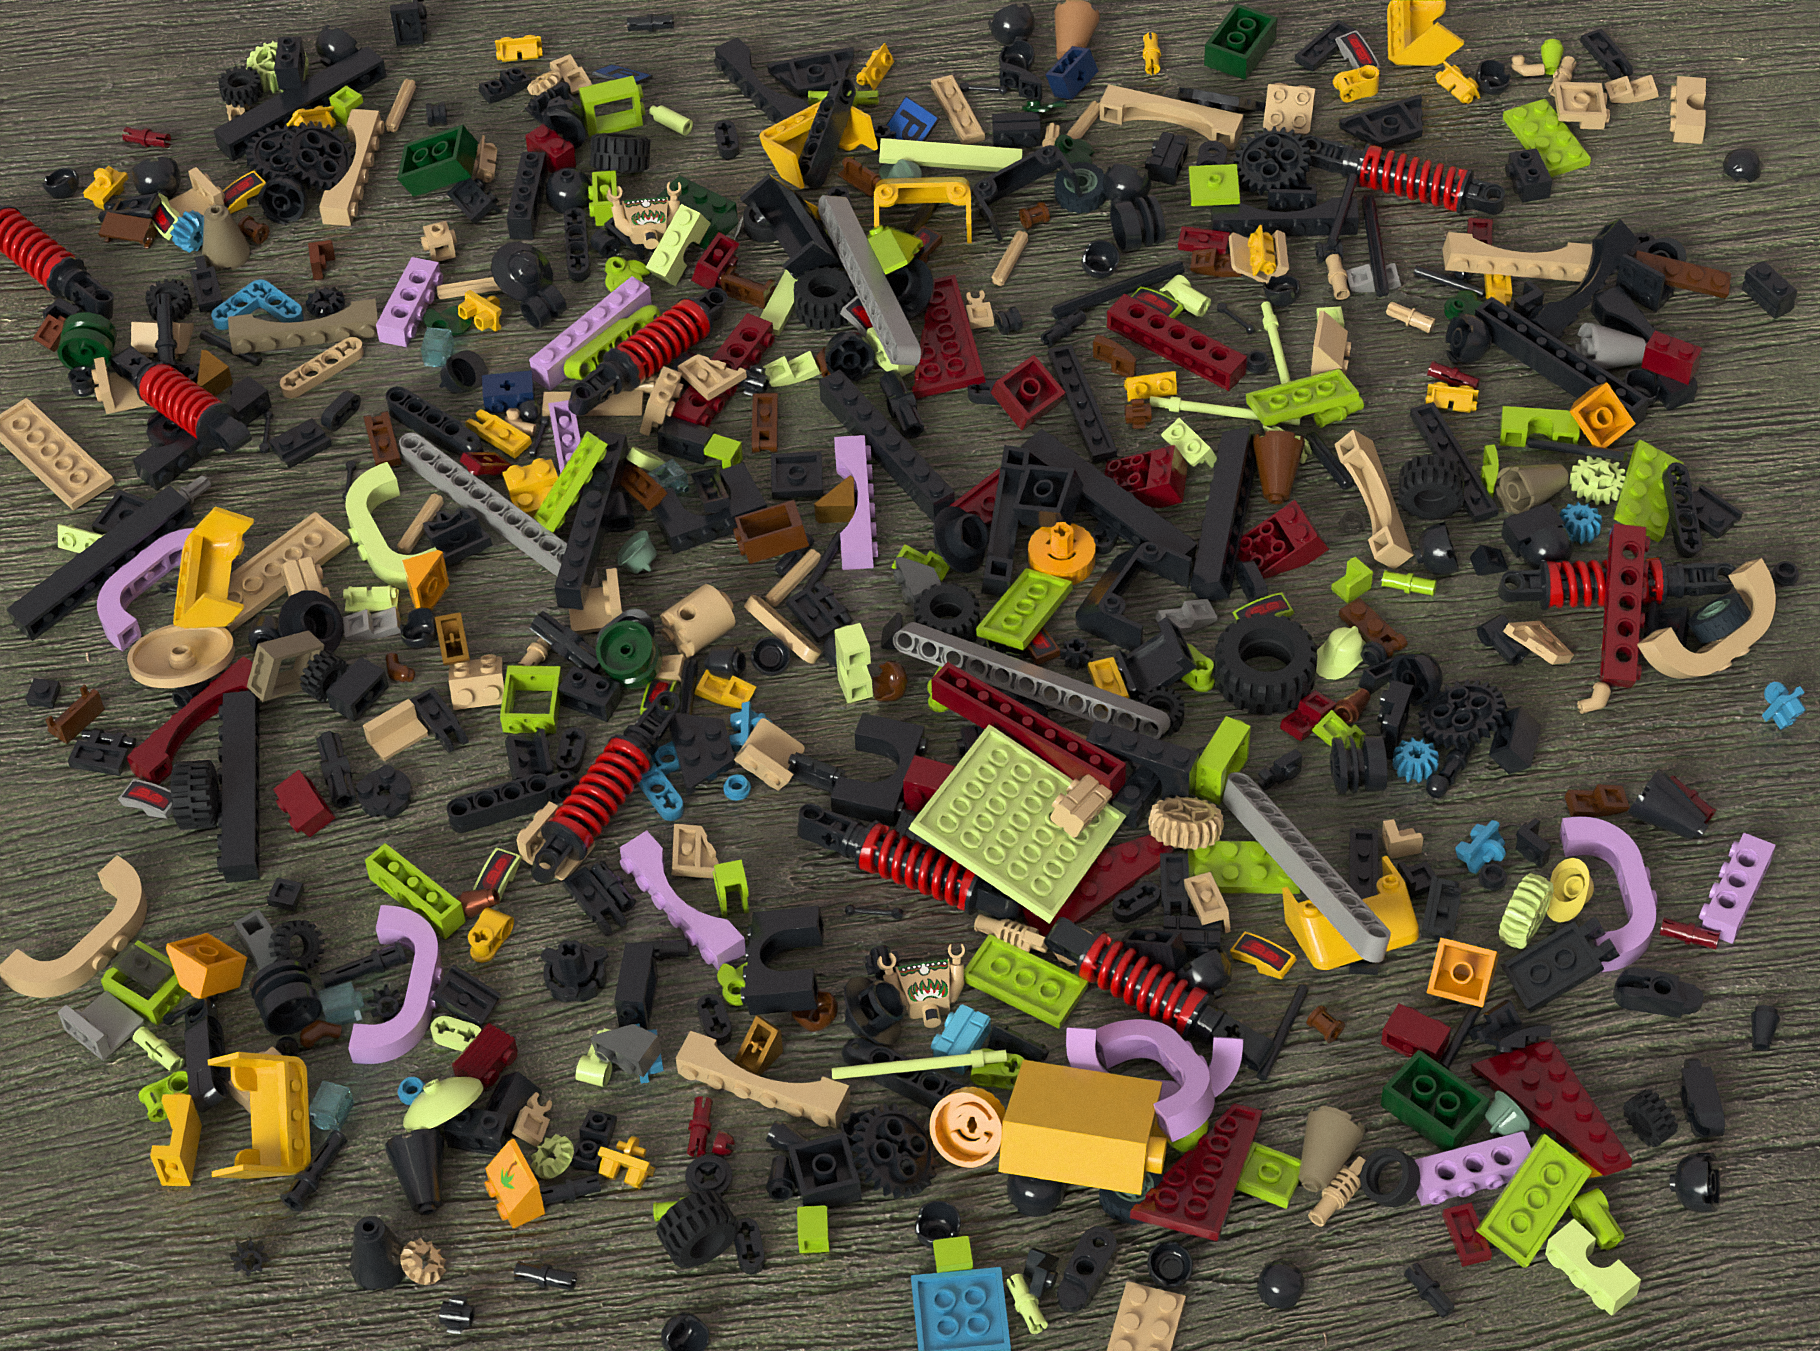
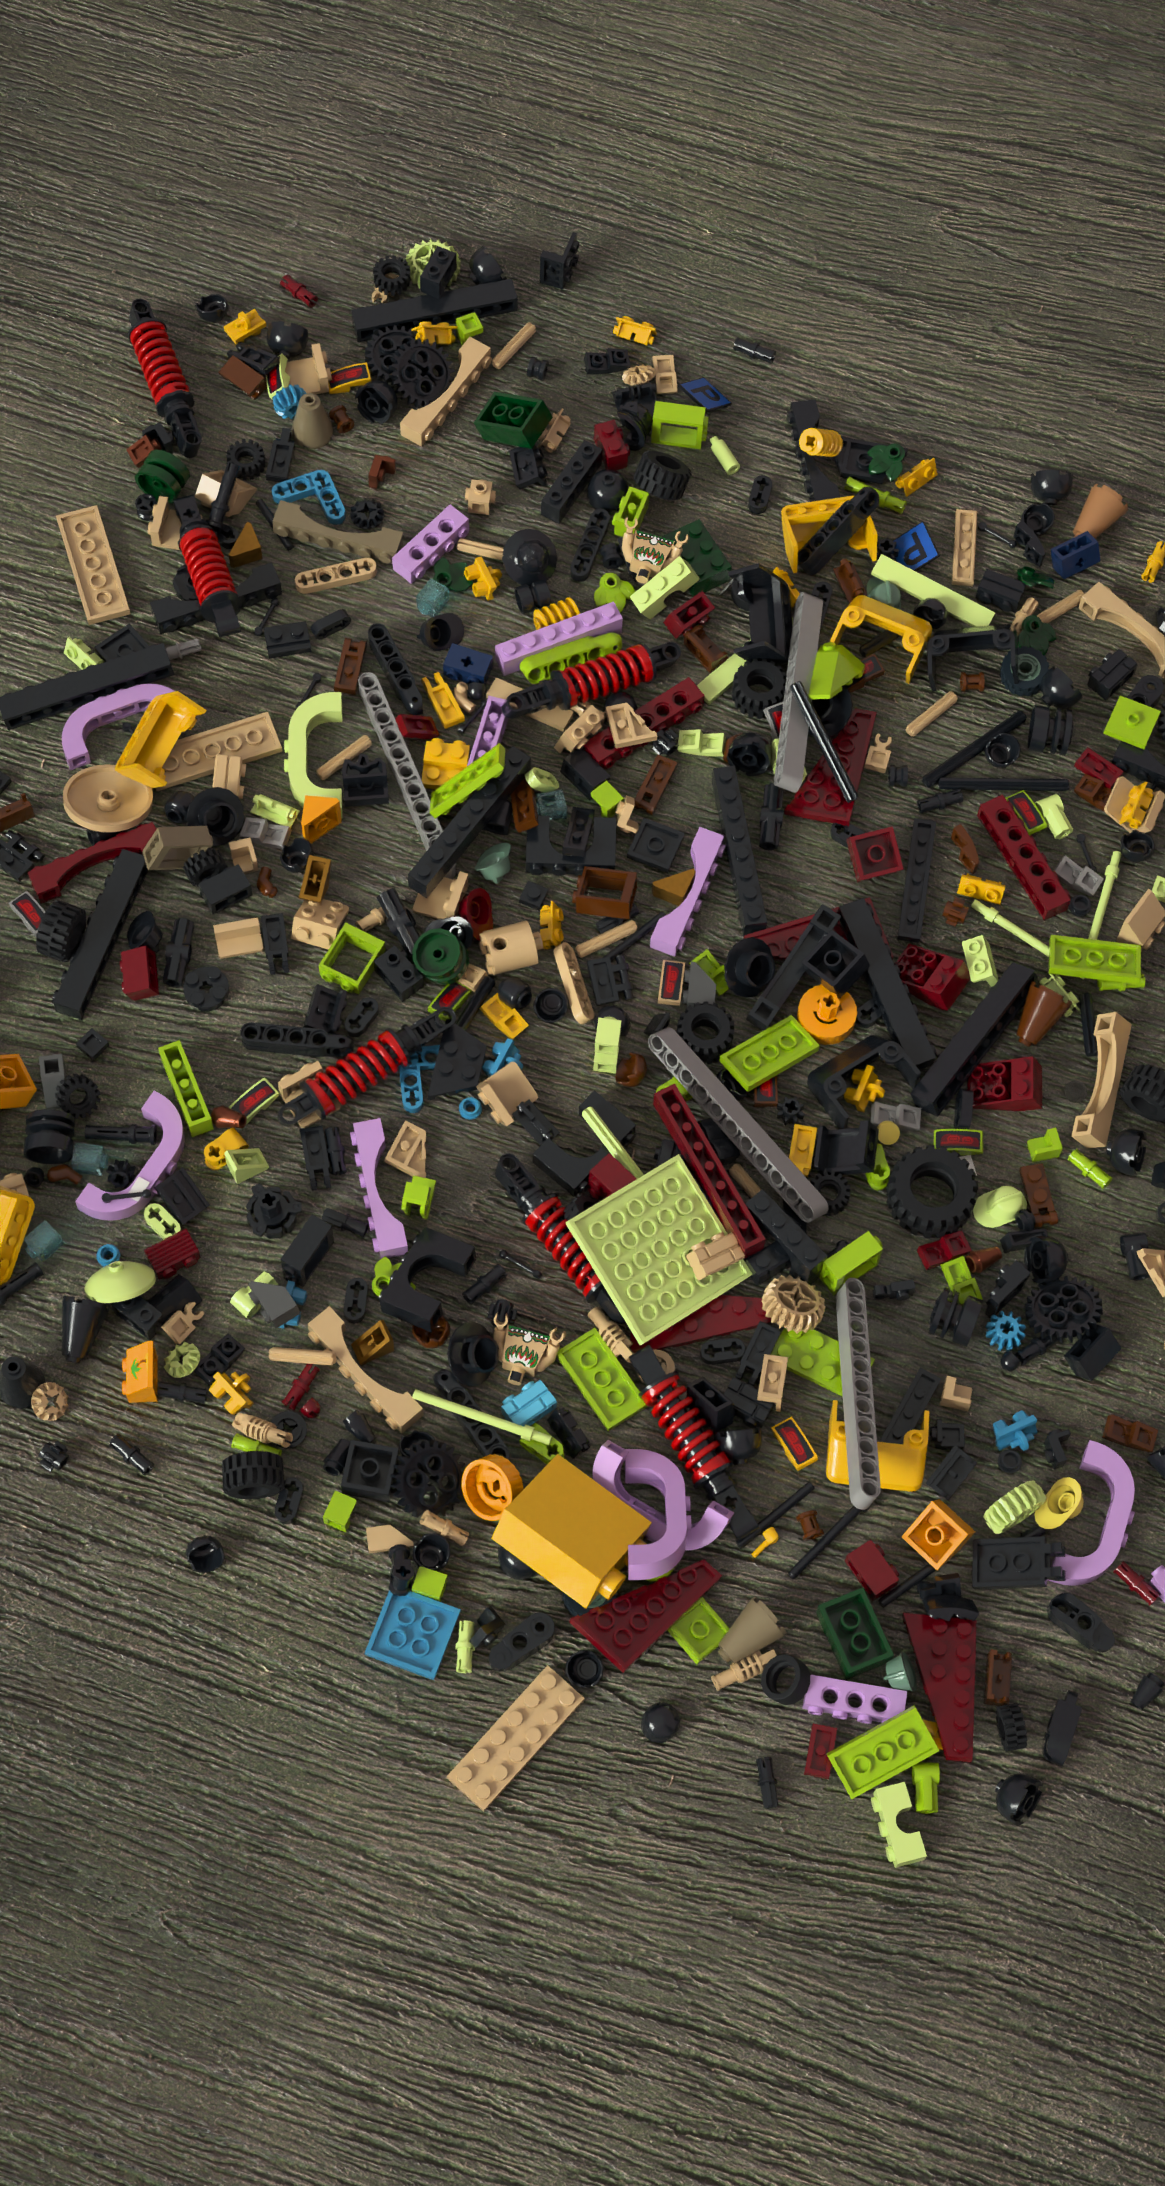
camera: 20 degrees right, 15 degrees up
(286, 760) = (144, 932): none -> black piece
(358, 646) = (244, 855): none -> tan panel
(383, 1028) = (106, 1197): none -> black hinge
(414, 1006) = (139, 1185): none -> white sticker
(518, 939) = (245, 1163): none -> yellowish green slope
(574, 310) = (555, 613): none -> yellow piece
(642, 597) = (477, 911): none -> dark red piece
(680, 1185) = (261, 1430): none -> tan hinge
(686, 1093) = (302, 1356): none -> tan axle
(693, 570) = (533, 895): none -> black plate
(724, 580) = (551, 917): none -> yellow hinge
(748, 454) = (624, 811): none -> tan bracket
(765, 66) = (821, 442): none -> yellow piece
(838, 63) = (885, 462): none -> dark green plate
(846, 944) = (484, 1284): none -> black pin
(879, 1236) = (384, 1537): none -> tan tile
(885, 589) = (671, 983): none -> slope
(899, 746) = (610, 1141): none -> yellowish green axle
(914, 1254) = (401, 1570): none -> black connector
(921, 309) = (824, 741): none -> black axle
(937, 1192) = (444, 1527): none -> tan pin
(960, 166) = (931, 611): none -> black hair
(1068, 274) = (972, 749): none -> black axle
(1142, 600) = (867, 1090): none -> yellow hips
(1190, 631) = (888, 1132): none -> light yellow tile
(1244, 341) = (1078, 878): none -> light grey slope
(1291, 1053) = (771, 1537): none -> yellow hand
(1366, 984) = (824, 1541): none -> black bar
(1604, 1082) = (997, 1678): none -> reddish brown hinge

